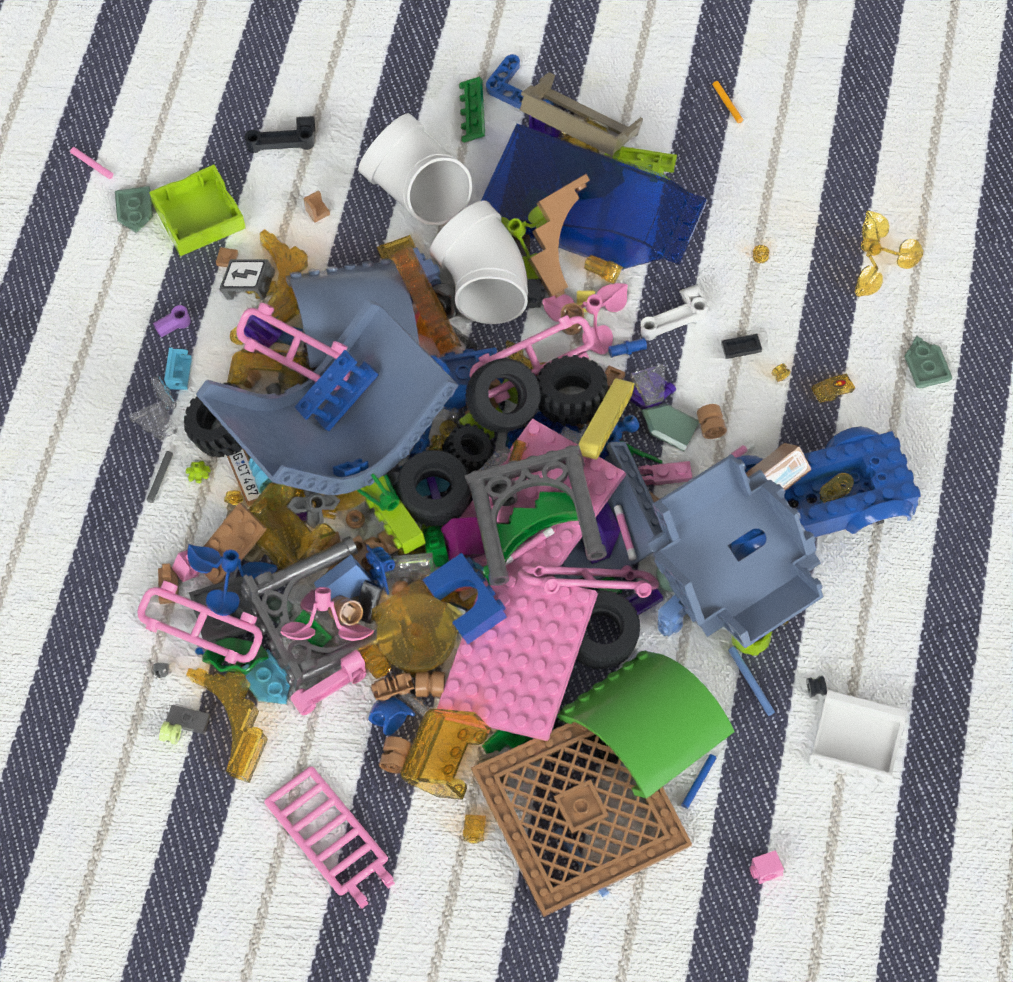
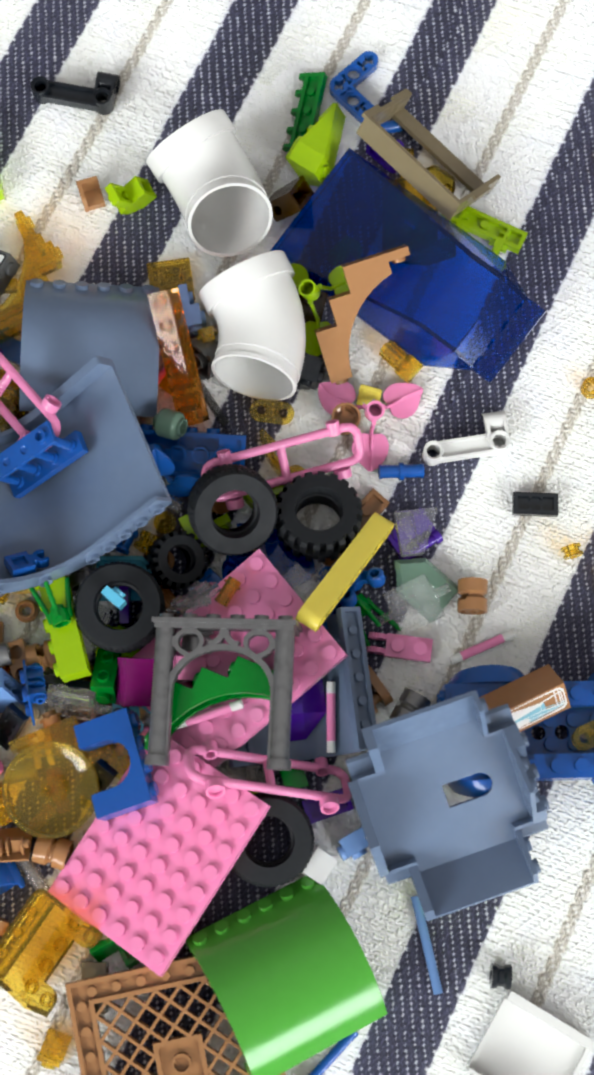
camera: 10 degrees right, 15 degrees up
(351, 200) = (132, 196): none -> lime brick
(430, 472) = (115, 596): none -> medium azure plate
(436, 347) = (170, 424): none -> sand green head
(444, 278) = (207, 334): none -> clear yellow plate
(481, 170) = (290, 198): none -> dark brown torso
(490, 132) = (317, 150): none -> lime wedge
(511, 328) = (272, 411): none -> clear yellow plate
(648, 640) = (319, 866): none -> white panel
(667, 436) = (414, 604): none -> clear plate

